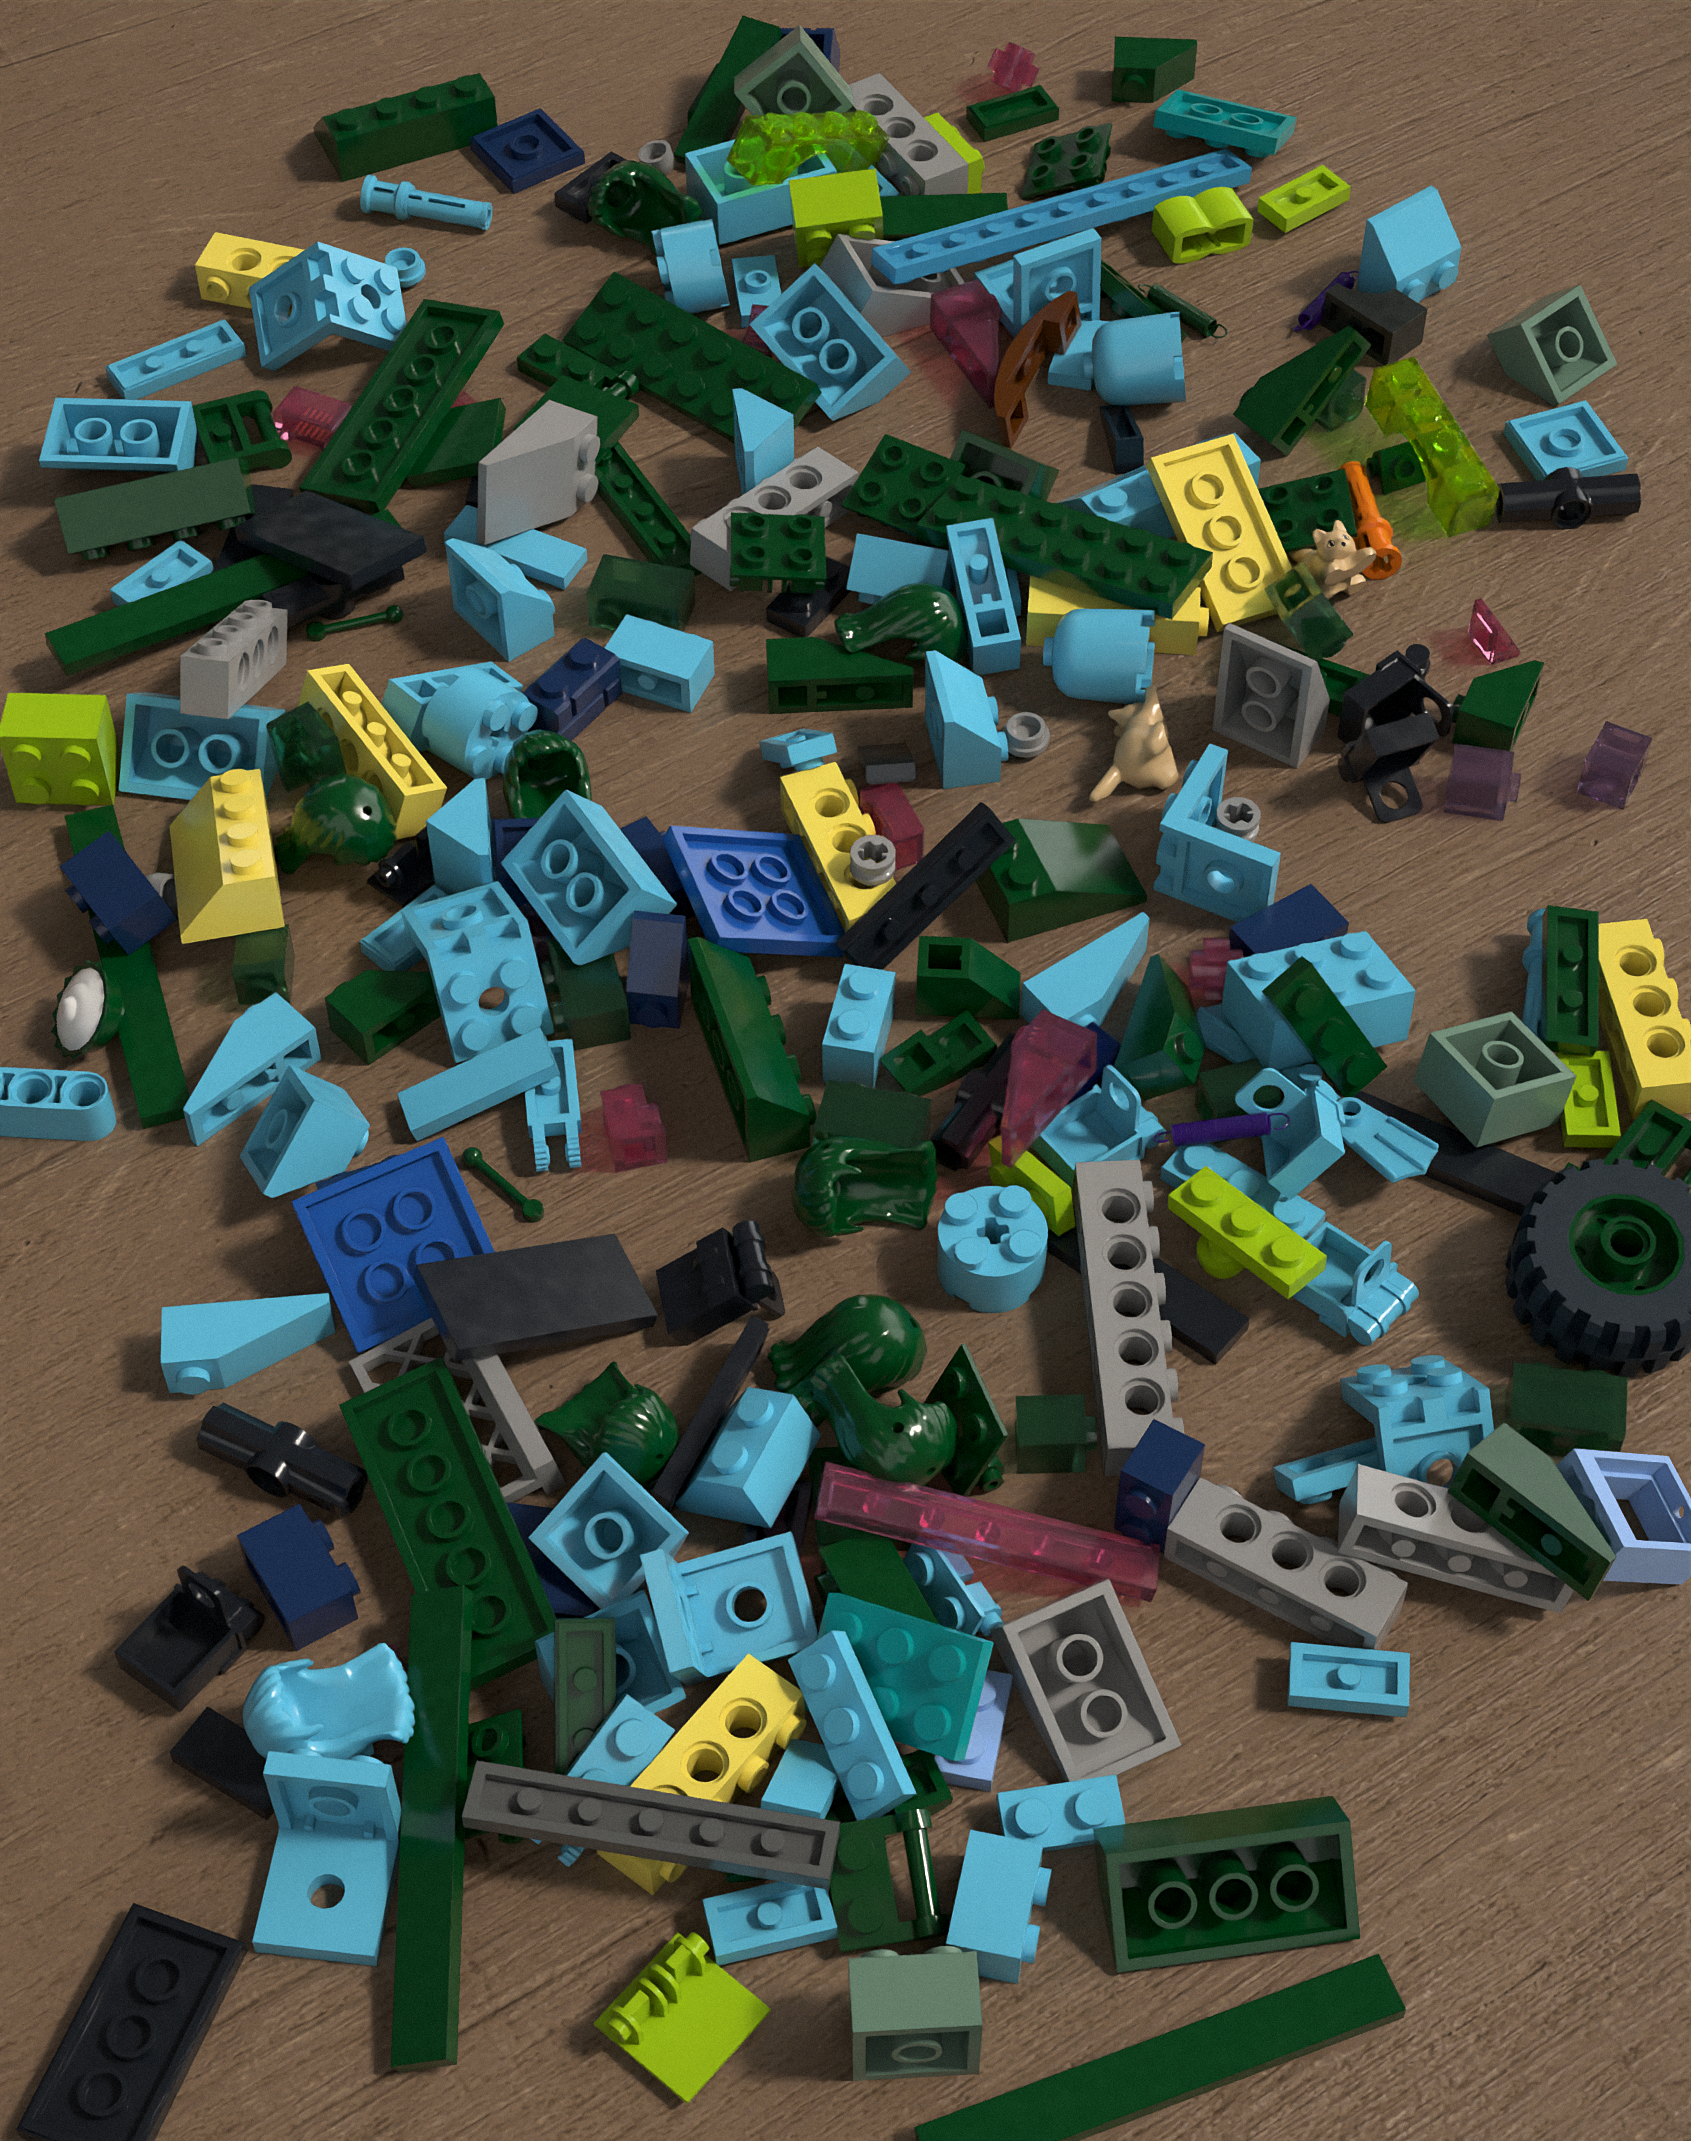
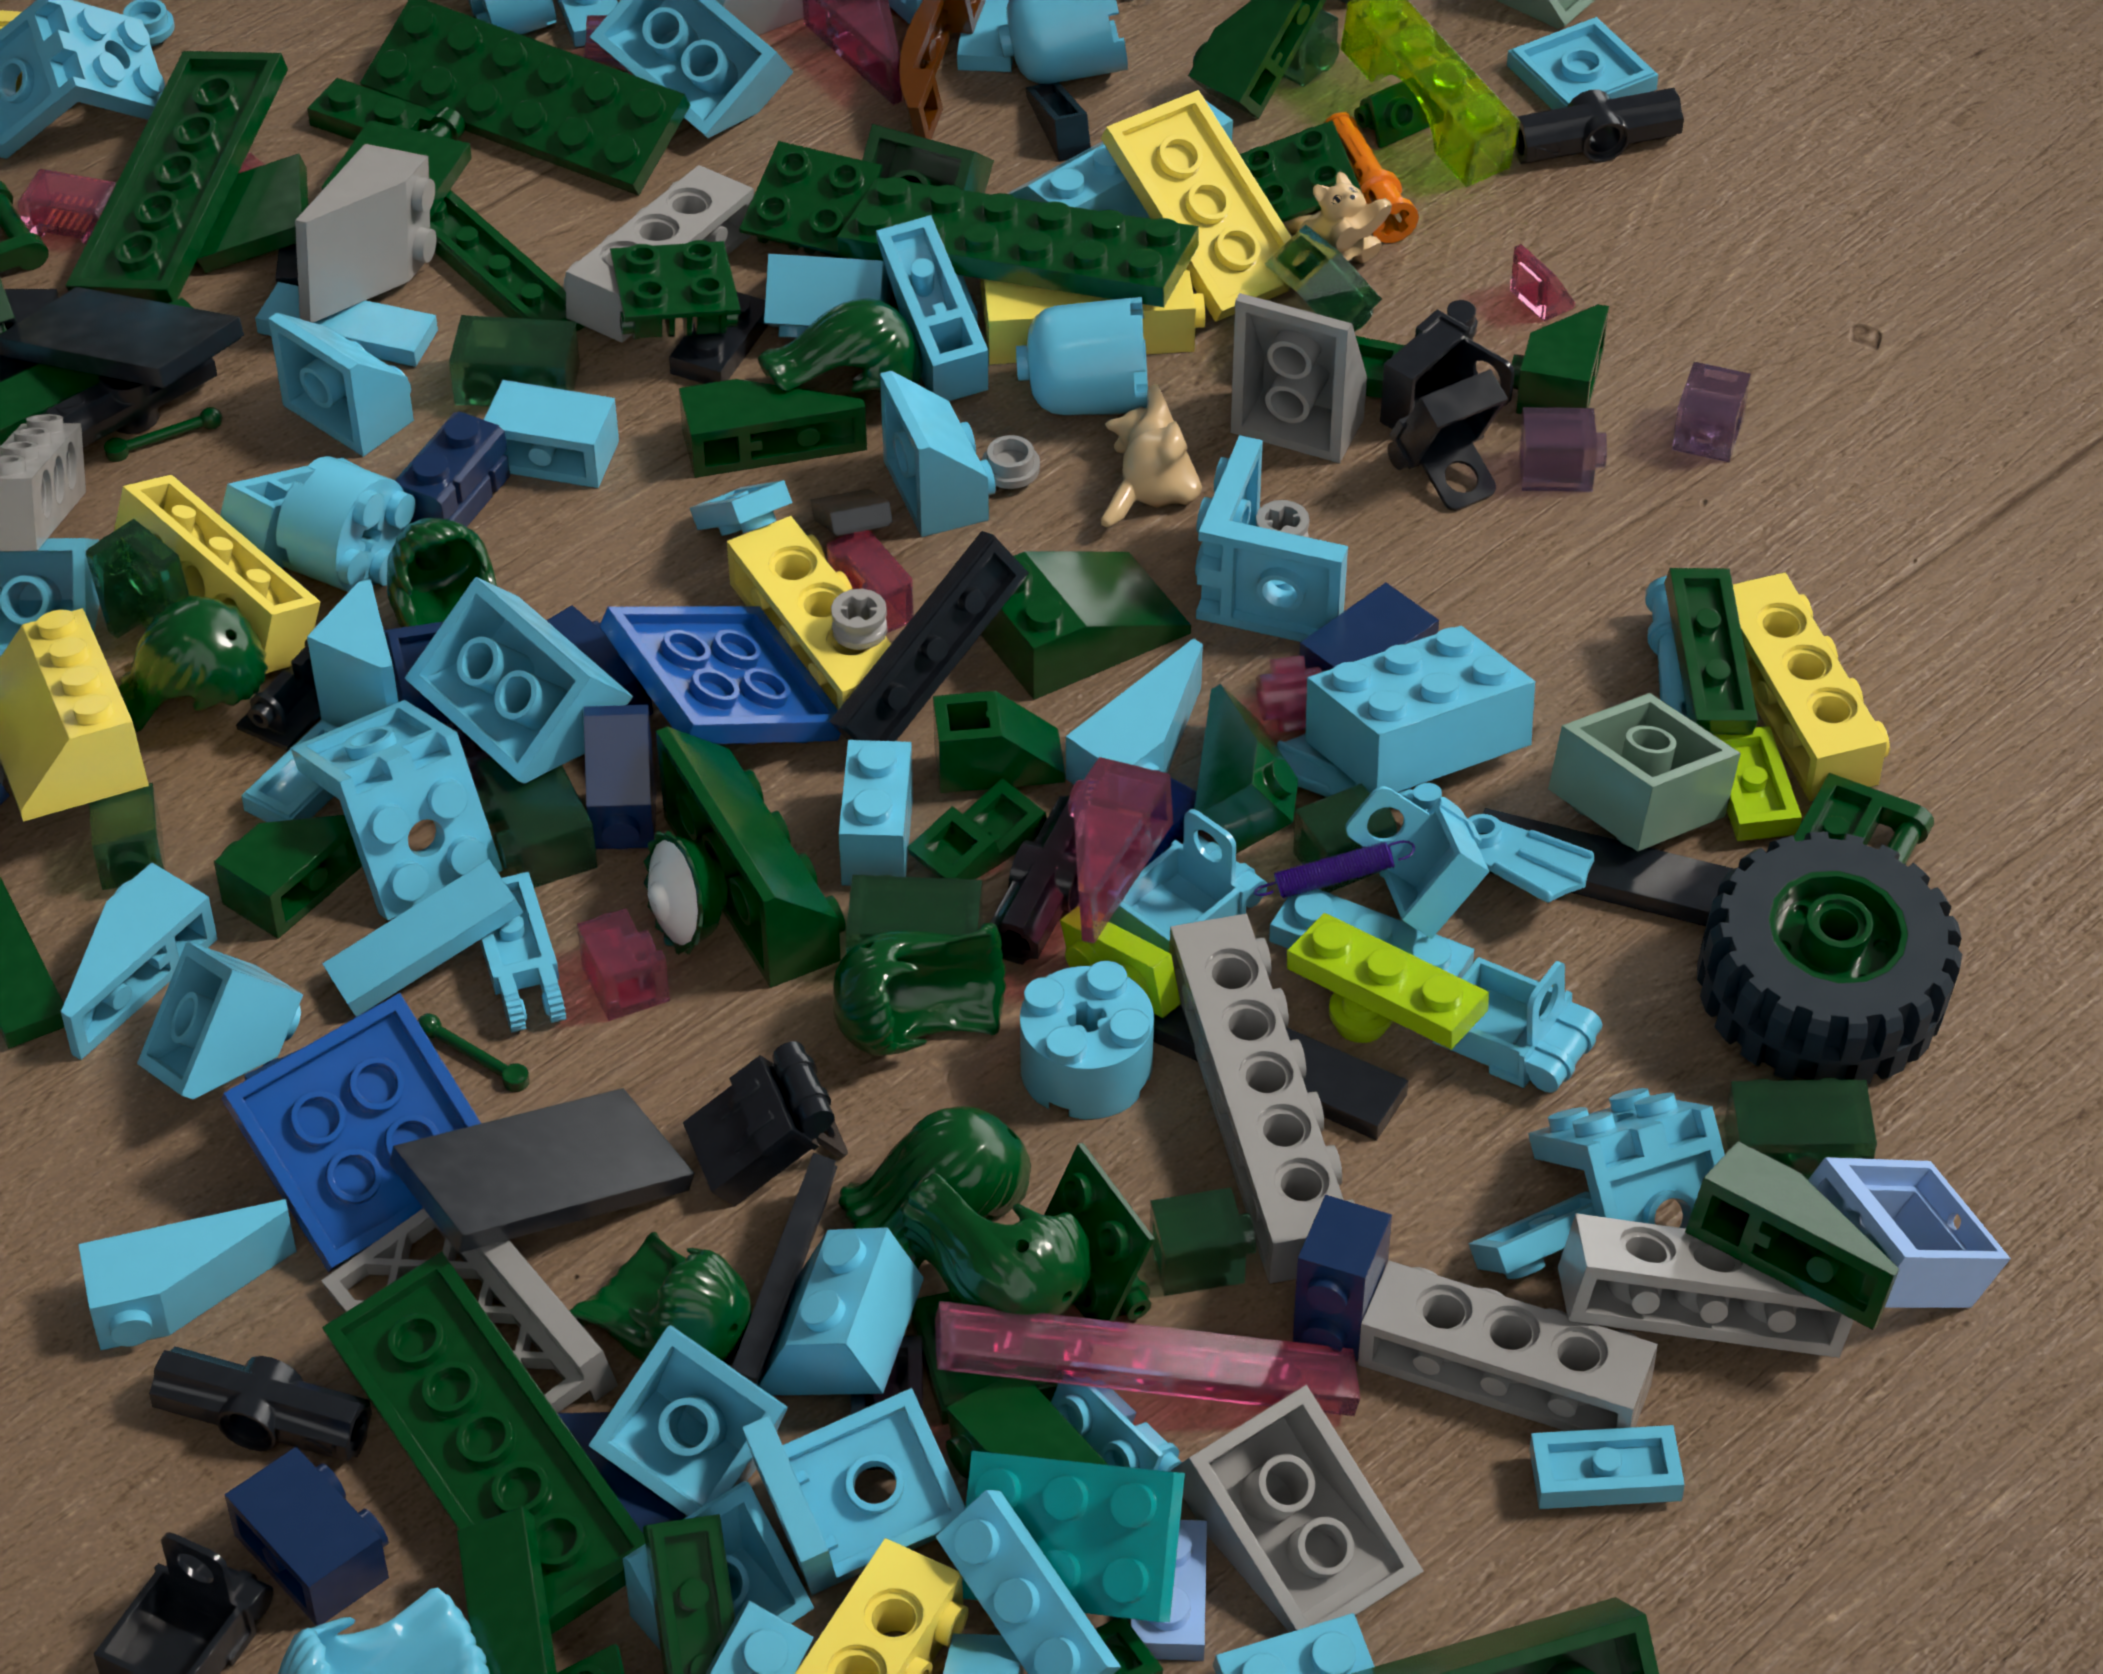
camera: 10 degrees left, 5 degrees down
(691, 1074) = (683, 890): none -> piece
(761, 438) = (628, 163): medium azure slope -> none
(1324, 1028) = (1437, 734): dark green plate -> none

